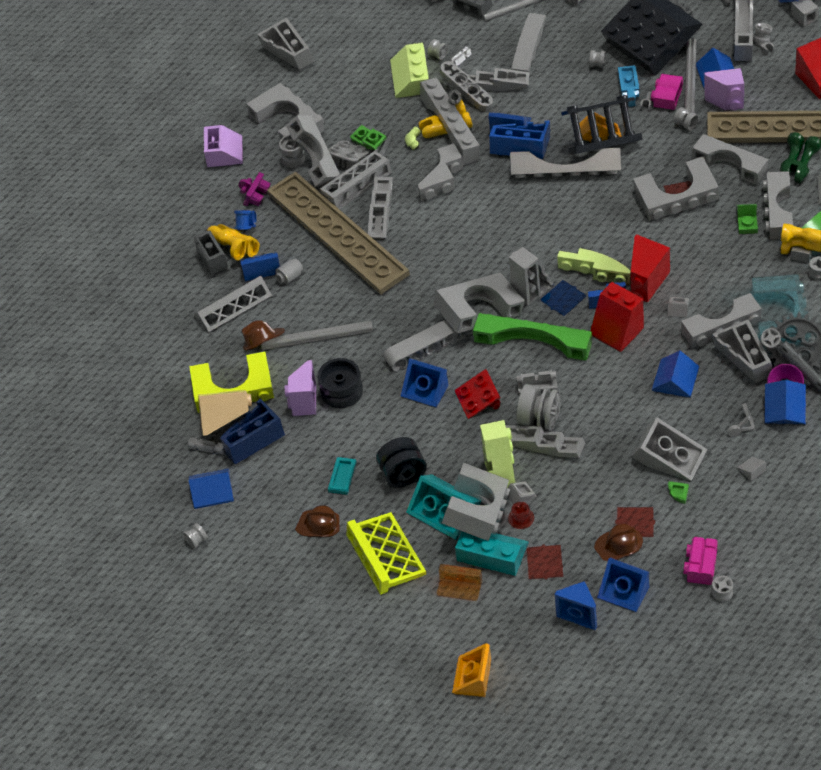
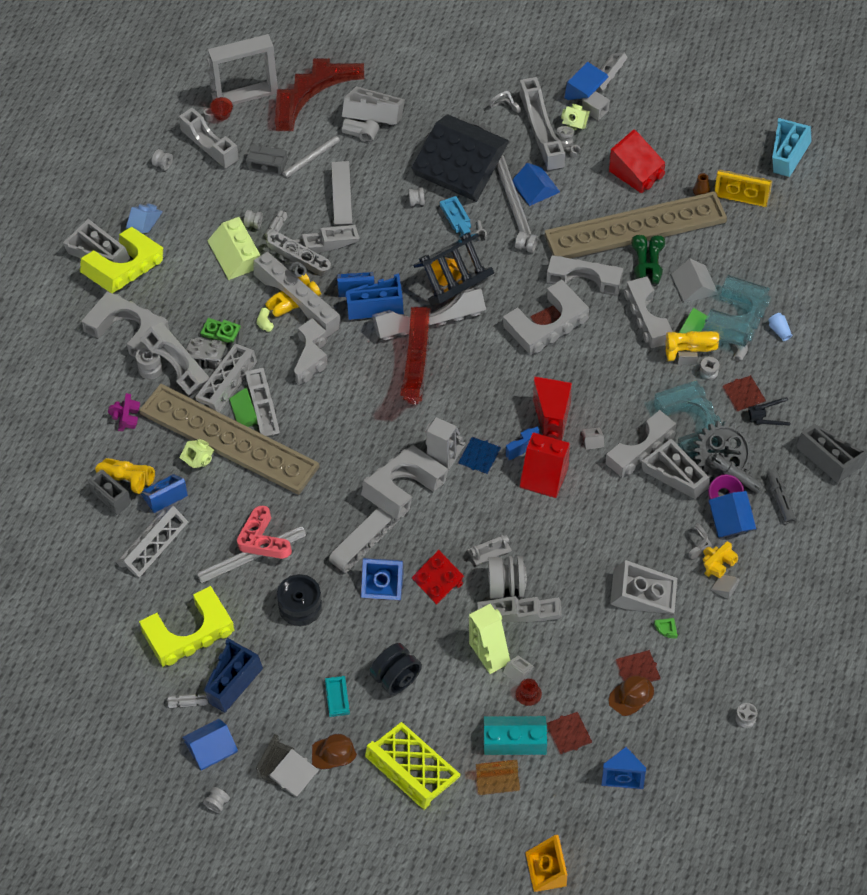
camera: 25 degrees left, 5 degrees up
(221, 408) = (193, 660): tan slope -> none
(222, 146) = (73, 373): lavender slope -> none
(245, 219) = (130, 448): blue piece -> none
(259, 332) = (195, 568): reddish brown piece -> none
(260, 515) = (271, 759): none -> clear smoke panel
(274, 531) = (293, 773): none -> light grey piece
(288, 271) = (197, 492): light grey brick -> none
(290, 70) = (114, 275): none -> neon yellow arch
(301, 237) = (197, 453): none -> yellowish green brick
(302, 390) = (266, 619): lavender slope -> none
(318, 321) = (277, 547): none -> coral beam
(338, 28) = (143, 217): none -> medium blue slope
(361, 208) = (243, 408): none -> bright green slope
(431, 501) = (450, 702): teal slope -> none
(474, 518) = (496, 676): light grey arch -> none
(495, 329) = (507, 500): bright green arch -> none
(543, 185) = (418, 347): none -> clear red arch
(603, 267) = (507, 414): yellowish green slope -> none
(624, 584) = (655, 737): blue slope -> none
(667, 91) = (498, 217): dark pink brick -> none
(676, 375) = (618, 510): blue slope -> none
(702, 560) = (717, 692): dark pink brick -> none
(725, 89) = (555, 203): lavender slope -> none
(747, 218) = (622, 331): bright green slope -> none
(752, 440) = (716, 557): none -> yellow hips
(772, 336) = (704, 452): light grey wheel -> none
(779, 17) = (581, 116): none -> yellowish green brick

